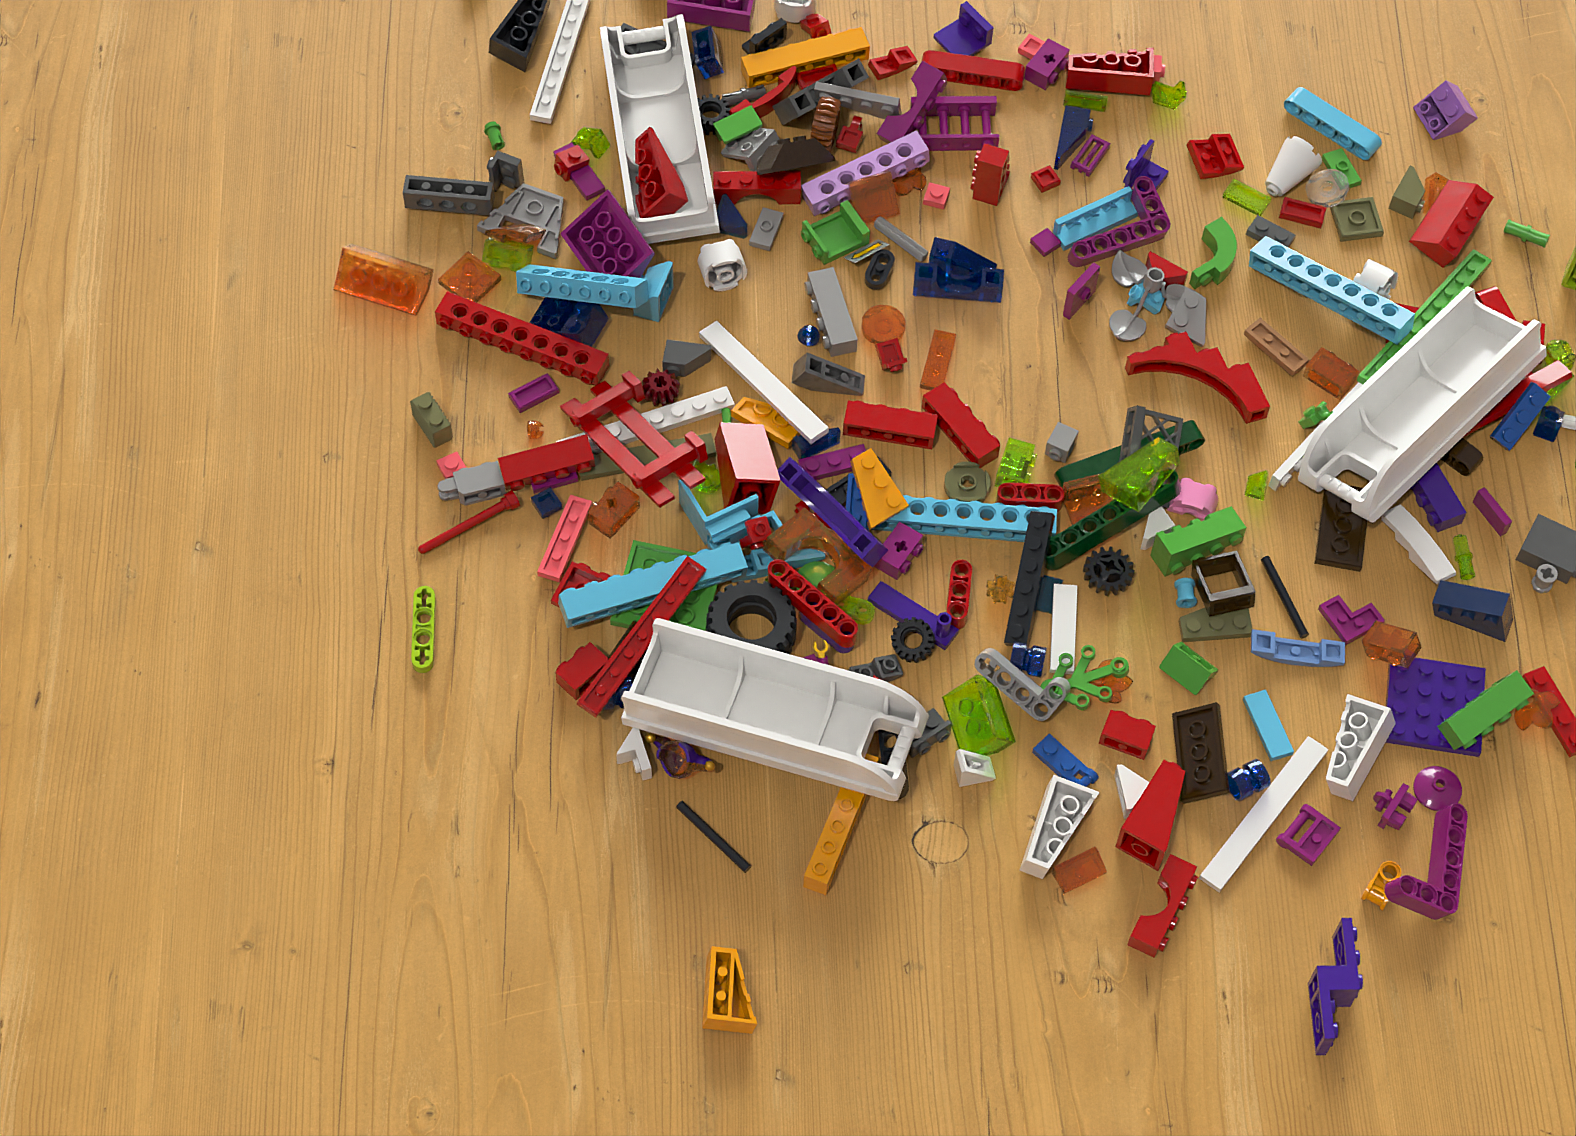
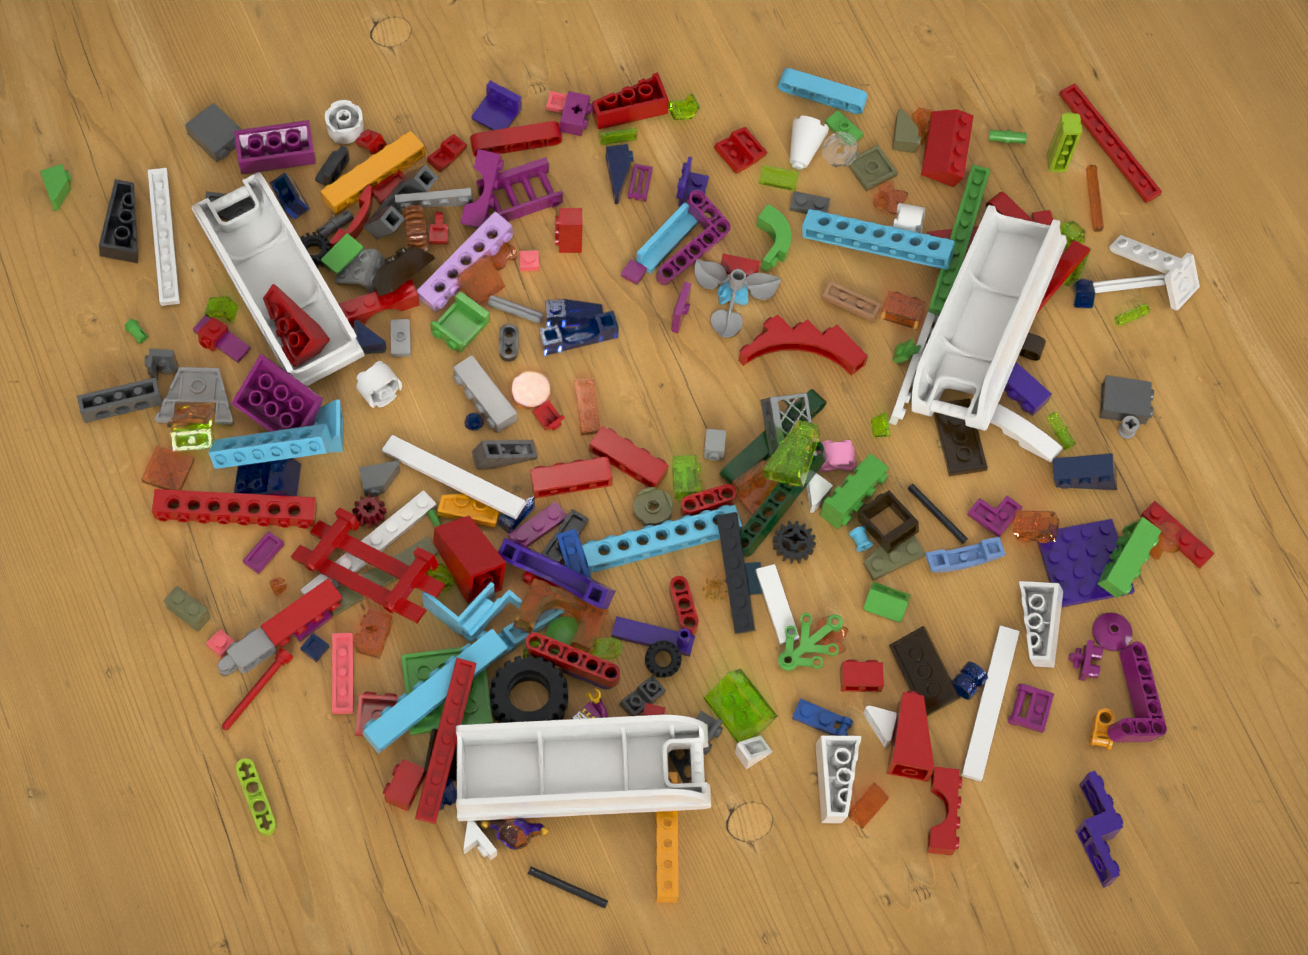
camera: 25 degrees left, 5 degrees up
(382, 279) = (93, 495): clear orange slope -> none
(758, 531) = (504, 613): red bracket -> none
(866, 251) = (491, 329): sticker -> none
(878, 491) = (588, 542): light orange wing -> none
(902, 547) = (623, 574): magenta brick -> none
(1019, 680) = (741, 657): light grey beam -> none
(1028, 658) = (757, 642): clear blue wheel -> none
(1045, 179) = (612, 215): red tile -> none
(1159, 68) = (668, 87): coral plate -> none
(1189, 317) = (774, 299): light grey wing -> none
(1268, 725) = (965, 627): medium azure tile -> none
(1302, 212) = (827, 176): red tile -> none
(1363, 251) = (890, 197): none -> clear orange plate
(1445, 111) = (906, 51): medium lavender slope -> none
(1492, 511) = (1069, 384): magenta tile -> none
(1520, 416) = (1062, 297): blue plate -> none

